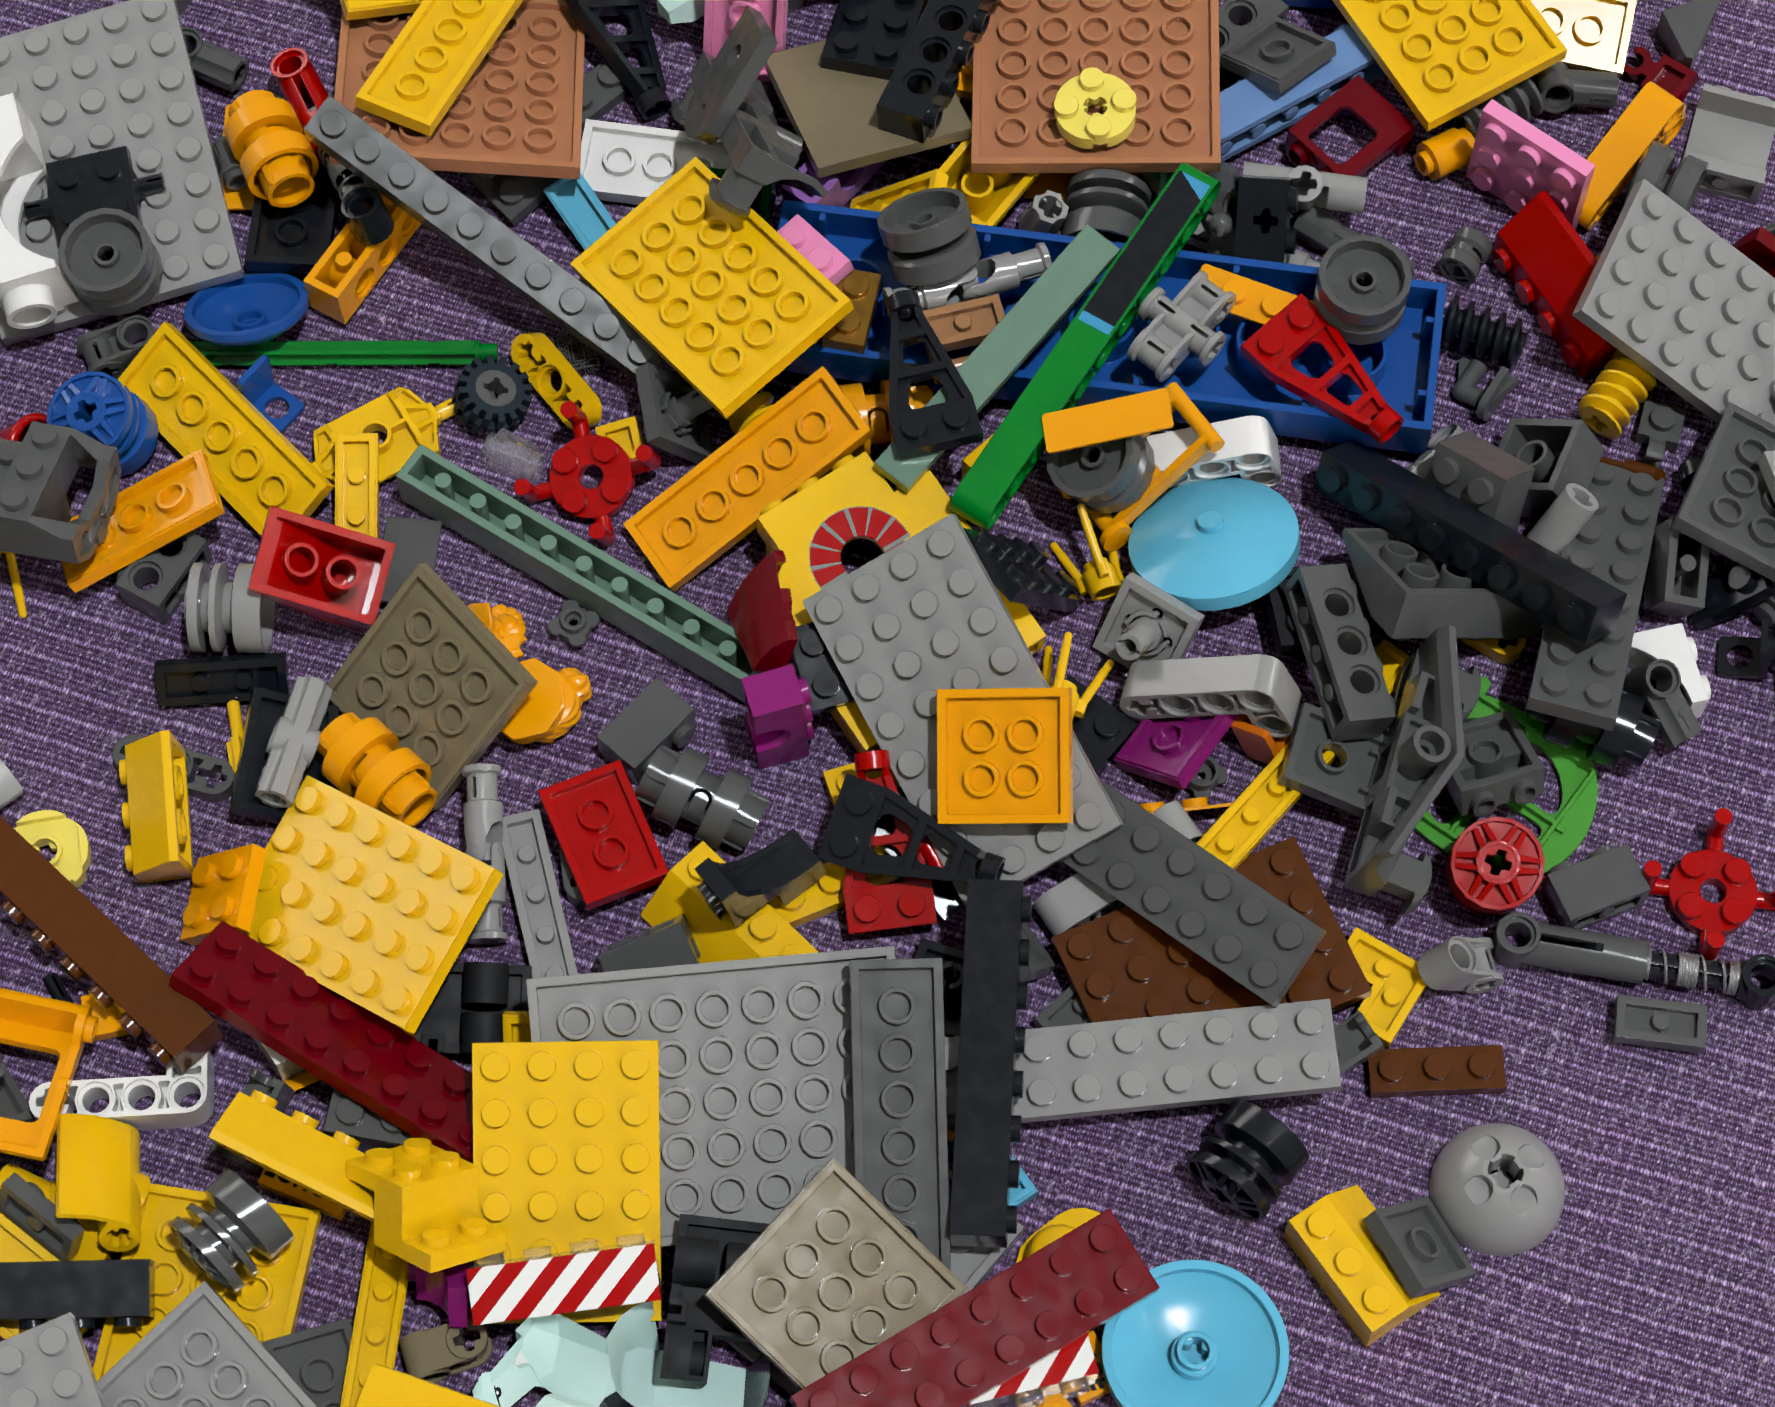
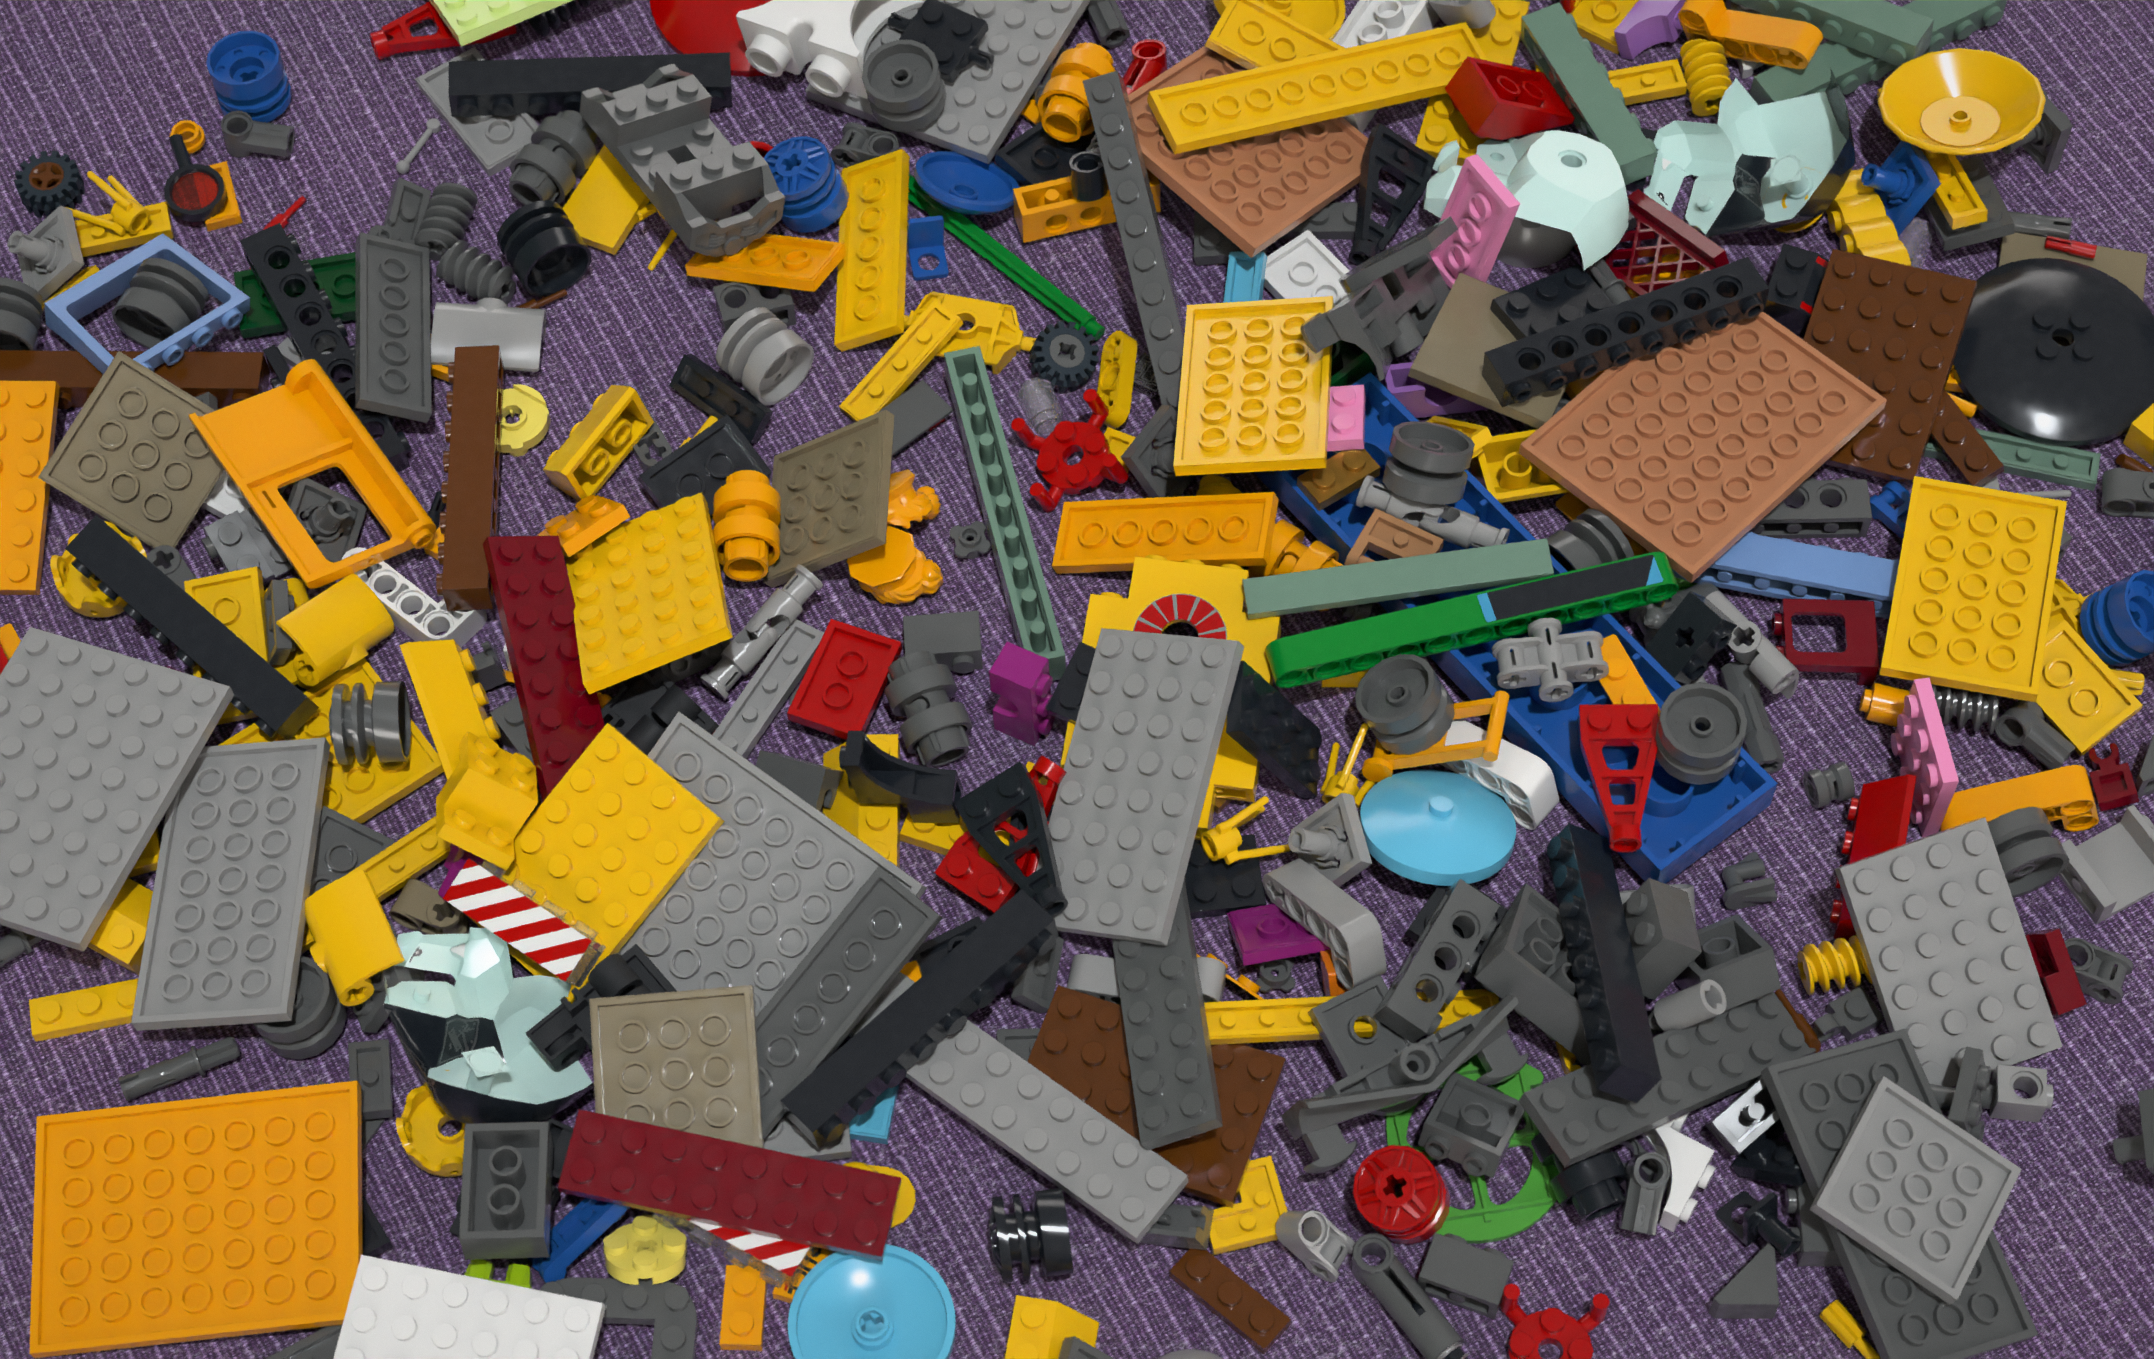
camera: 45 degrees right, 5 degrees down
(293, 742) = (713, 464): light grey piece -> none
(321, 569) = (833, 369): red slope -> none
(764, 615) = (1074, 622): dark red slope -> none
(934, 426) = (1307, 588): black plate -> none
(1004, 756) = (1124, 830): light orange plate -> none
(1044, 214) = (1542, 519): light grey piece -> none
(1093, 89) = (1646, 455): light yellow plate -> none
(1107, 420) = (1421, 674): light orange piece -> none
(1278, 55) = (1823, 541): dark grey tile -> none
(1484, 333) = (1782, 847): black piece -> none

